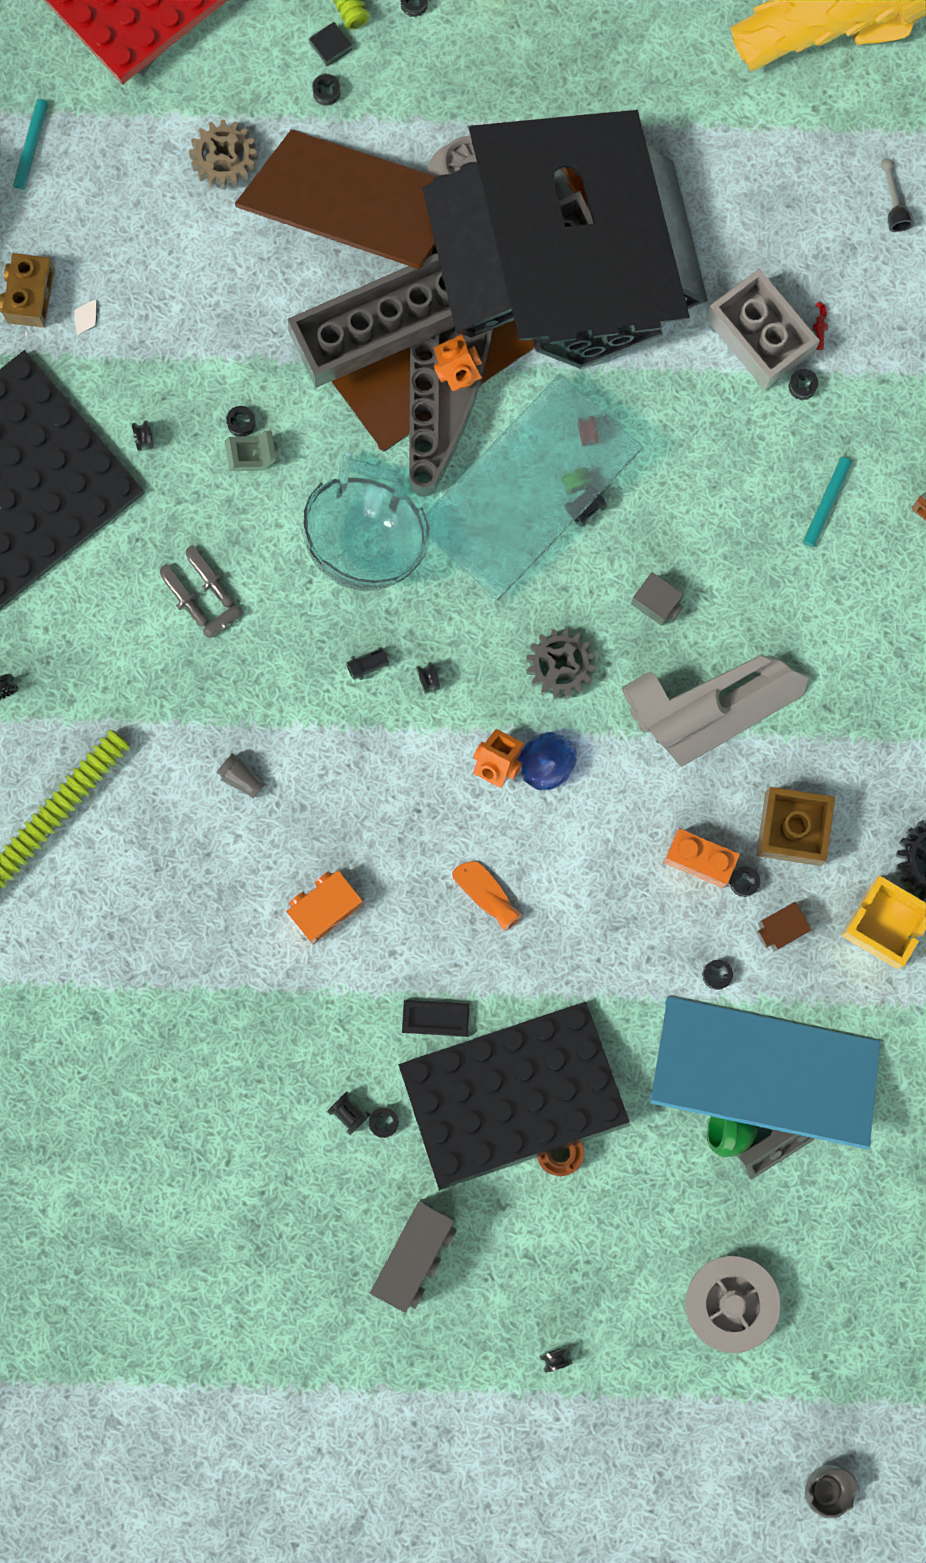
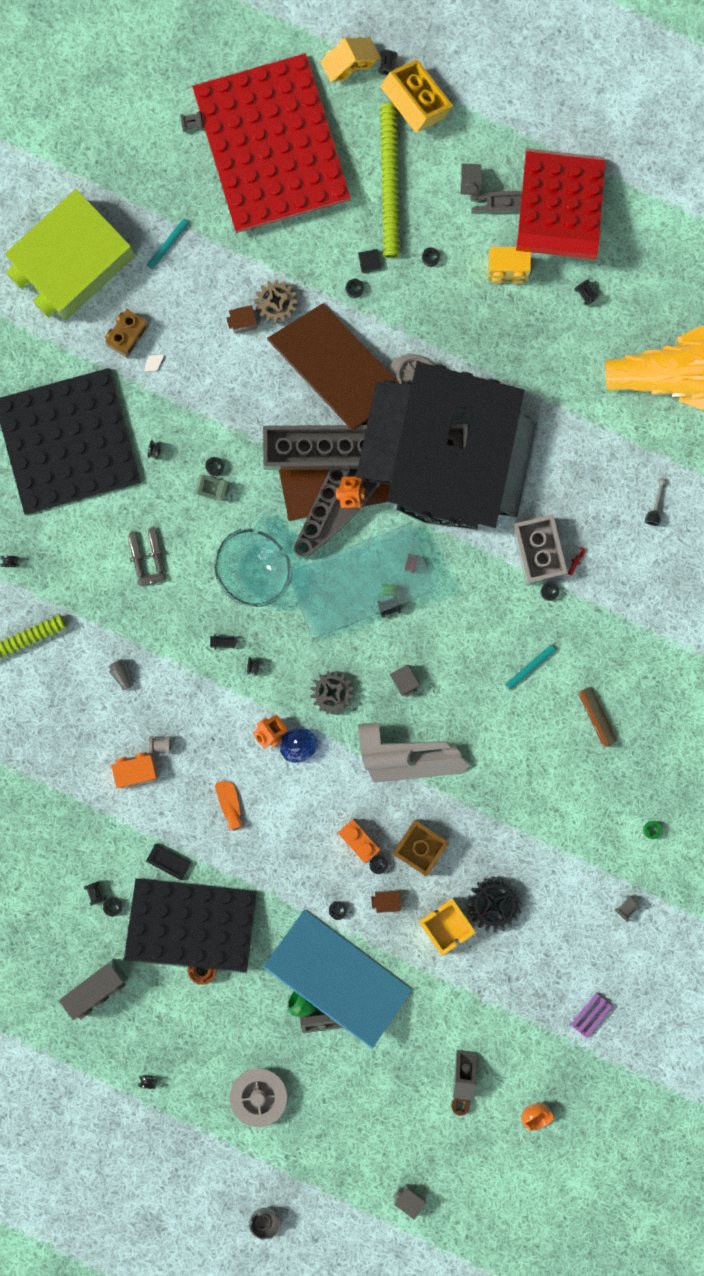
camera: 25 degrees right, 5 degrees up
(186, 199) = (242, 319): none -> reddish brown brick
(344, 852) = (159, 744): none -> light grey bush

